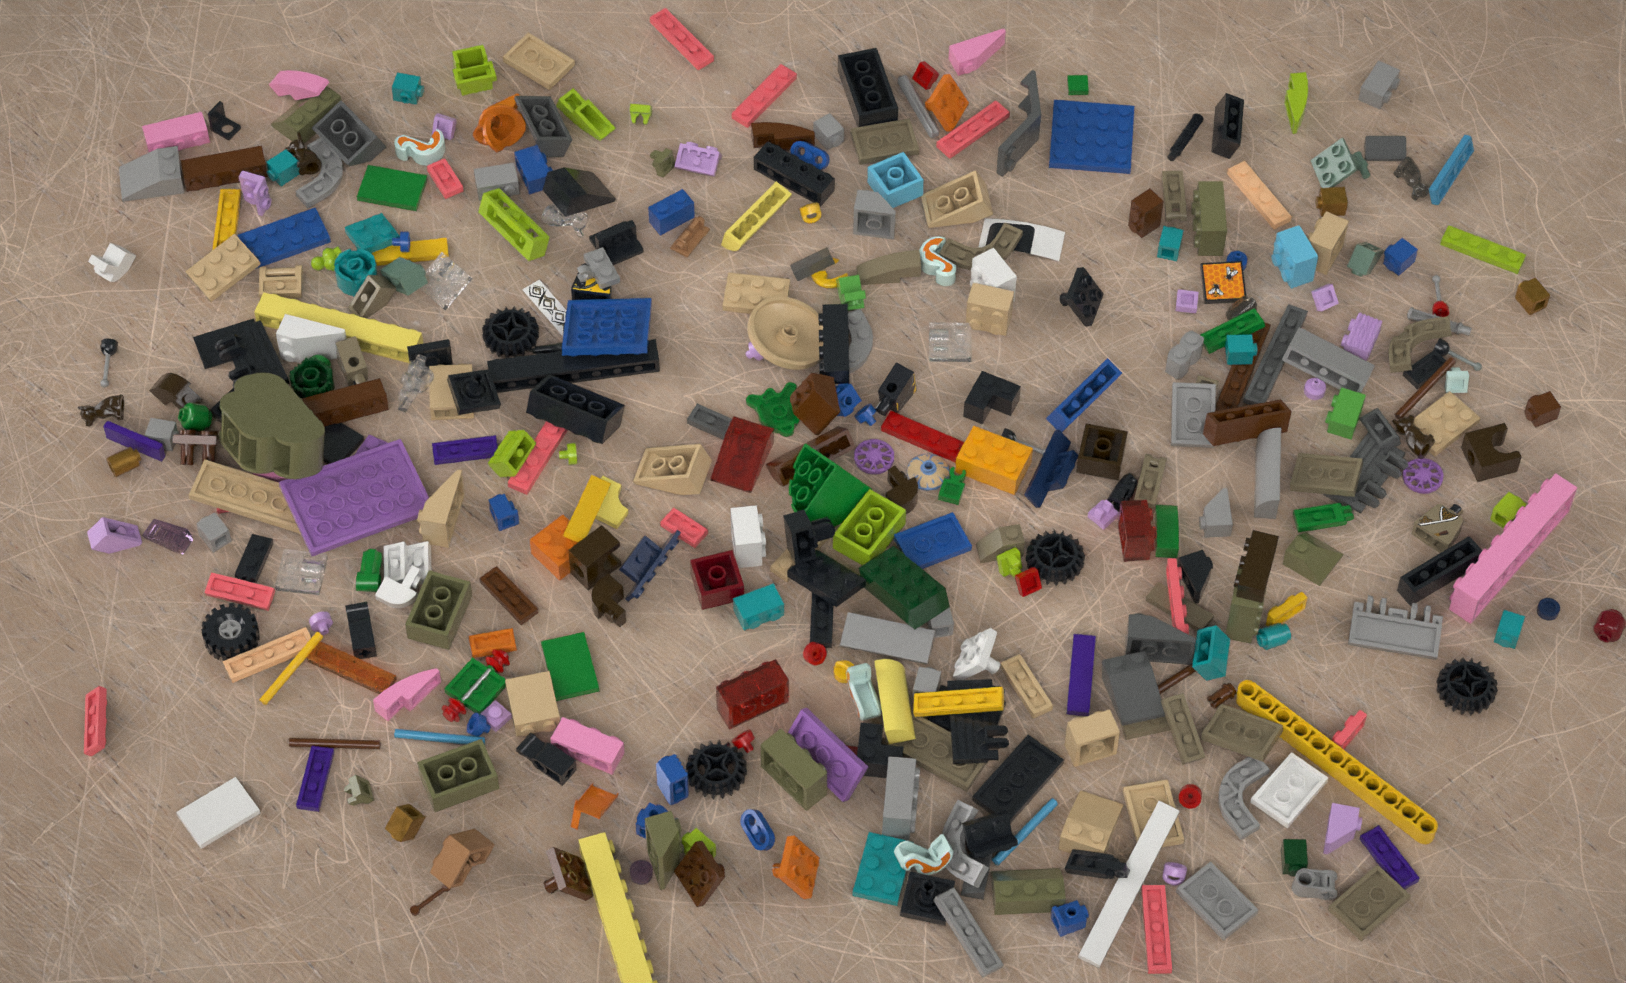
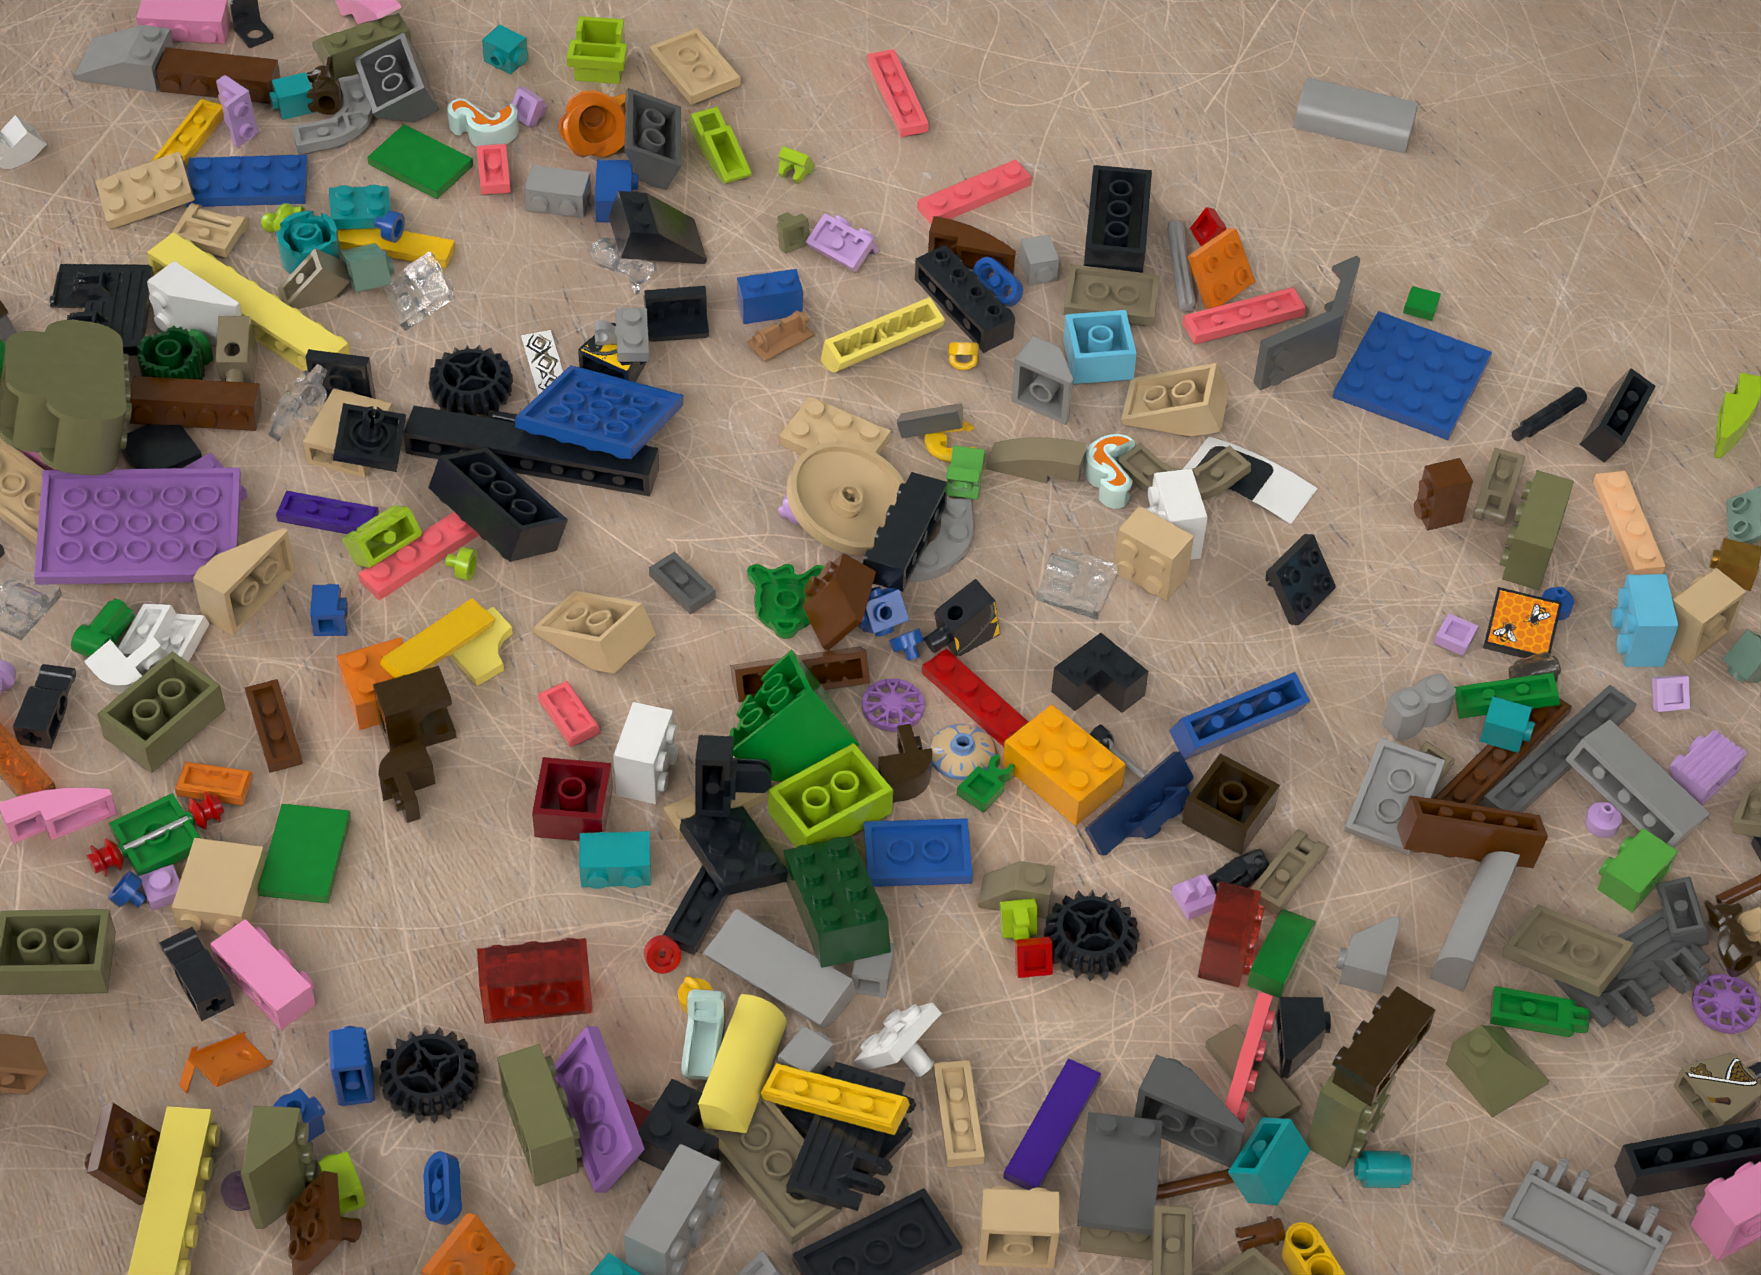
camera: 20 degrees right, 5 degrees down
(436, 737) = (66, 889): dark azure piece -> none
(513, 224) = (547, 248): lime brick -> none
(643, 561) = (486, 738): dark blue bracket -> none
(743, 454) = (704, 640): clear red slope -> none
(744, 740) = (492, 1046): red tile -> none
(972, 53) = (1295, 219): bright pink slope -> none
(1170, 243) = (1464, 547): teal brick -> none
(1293, 605) = (1422, 1136): yellow plate -> none

